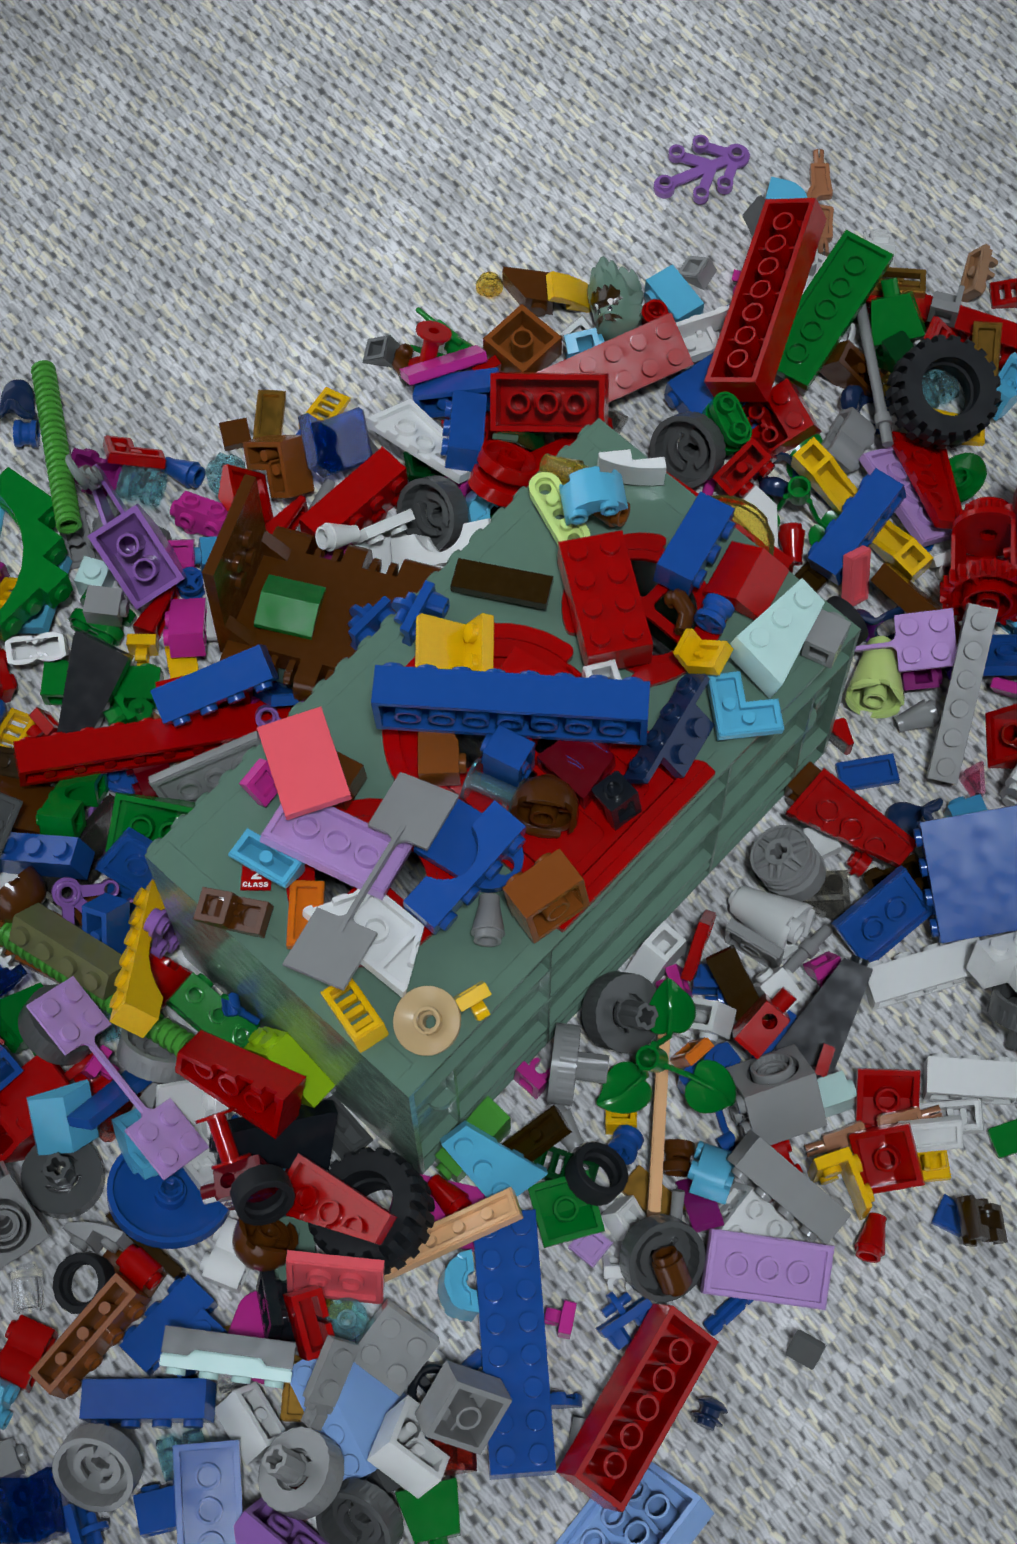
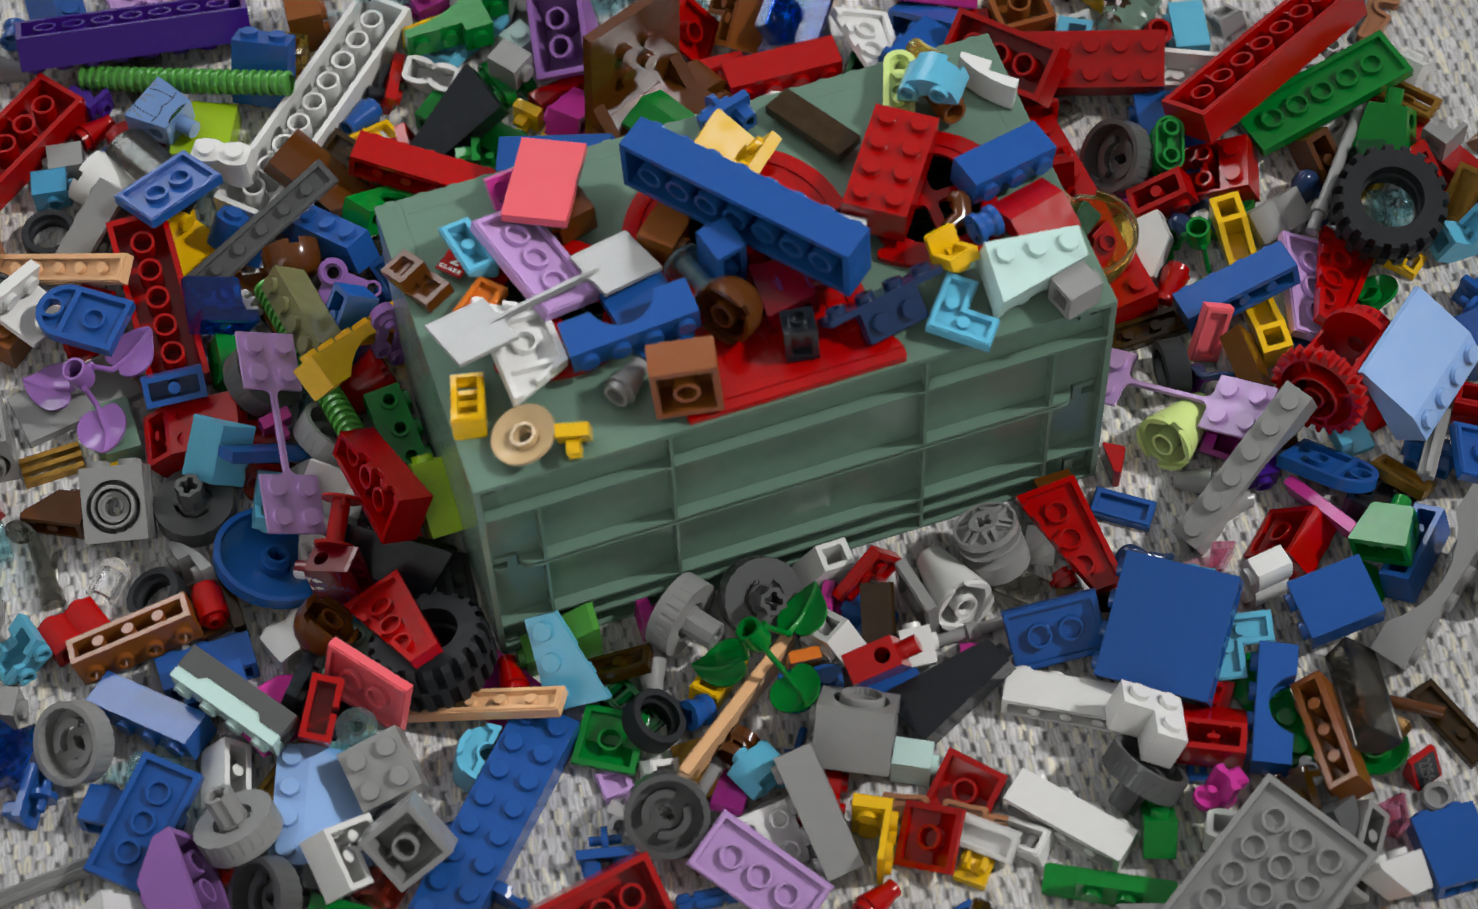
camera: 30 degrees right, 10 degrees down
(233, 1008) = (414, 425): blue hand -> none
(267, 1210) = (348, 562): black tyre -> none
(327, 1380) = (307, 761): light grey hinge -> none
(334, 536) = (738, 81): white cone -> none
(563, 1318) = (550, 830): dark pink tile -> none
(671, 1271) = (665, 826): reddish brown brick -> none
(825, 1060) = (919, 720): red tile -> none

